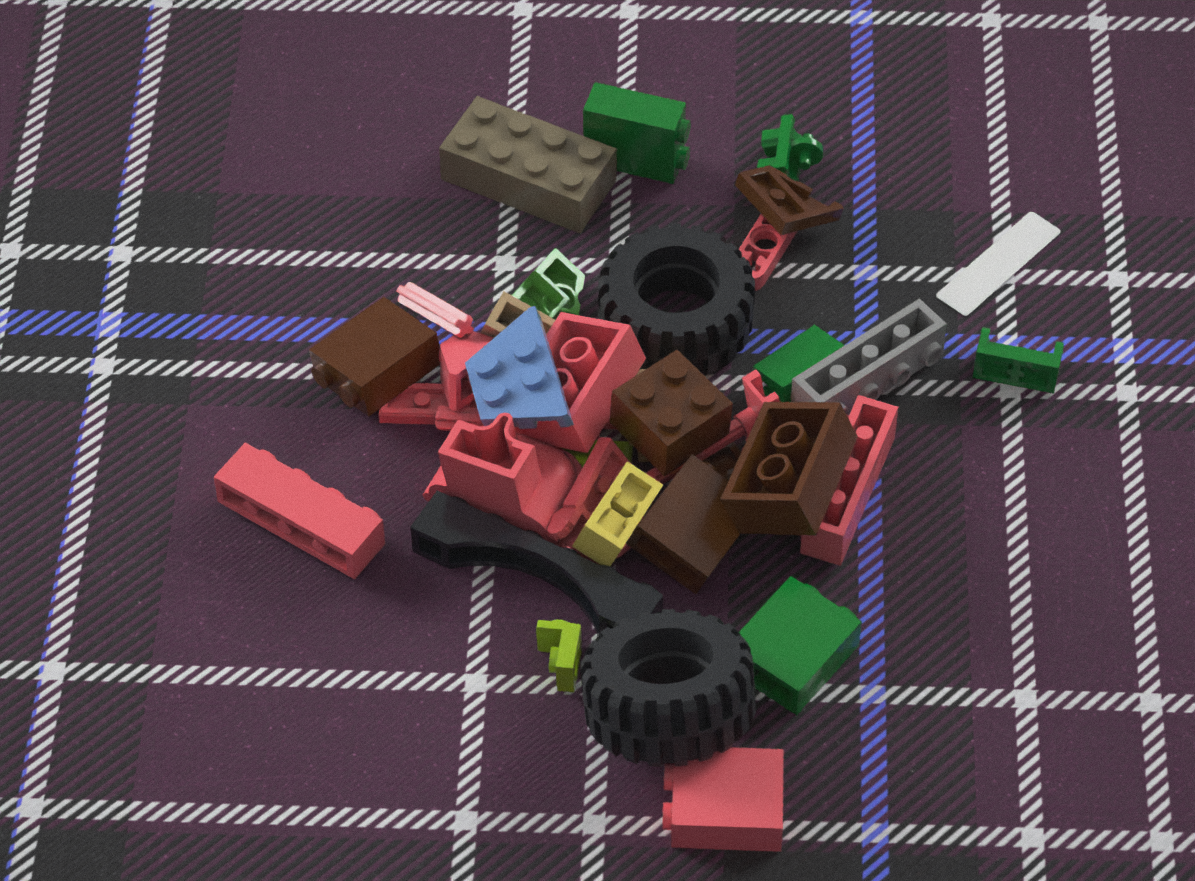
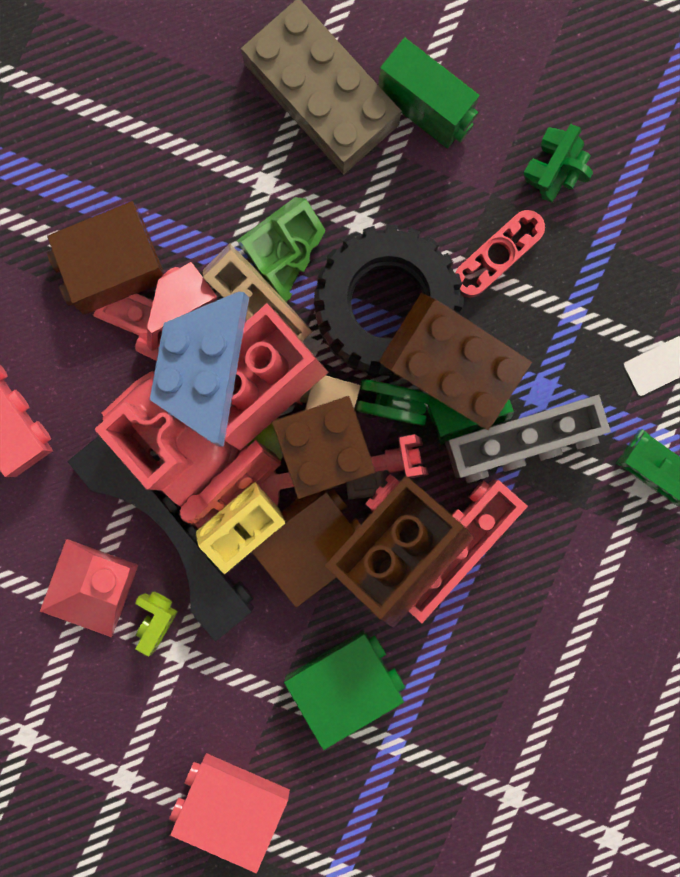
camera: 20 degrees right, 35 degrees up
(435, 309) = (174, 230): axle -> none
(478, 646) = (89, 588): none -> coral slope
(668, 687) = (186, 671): black tyre -> none
(725, 366) = (395, 402): none -> green head
(765, 299) = (455, 361): none -> reddish brown brick
(785, 201) = (531, 224): reddish brown wing -> none

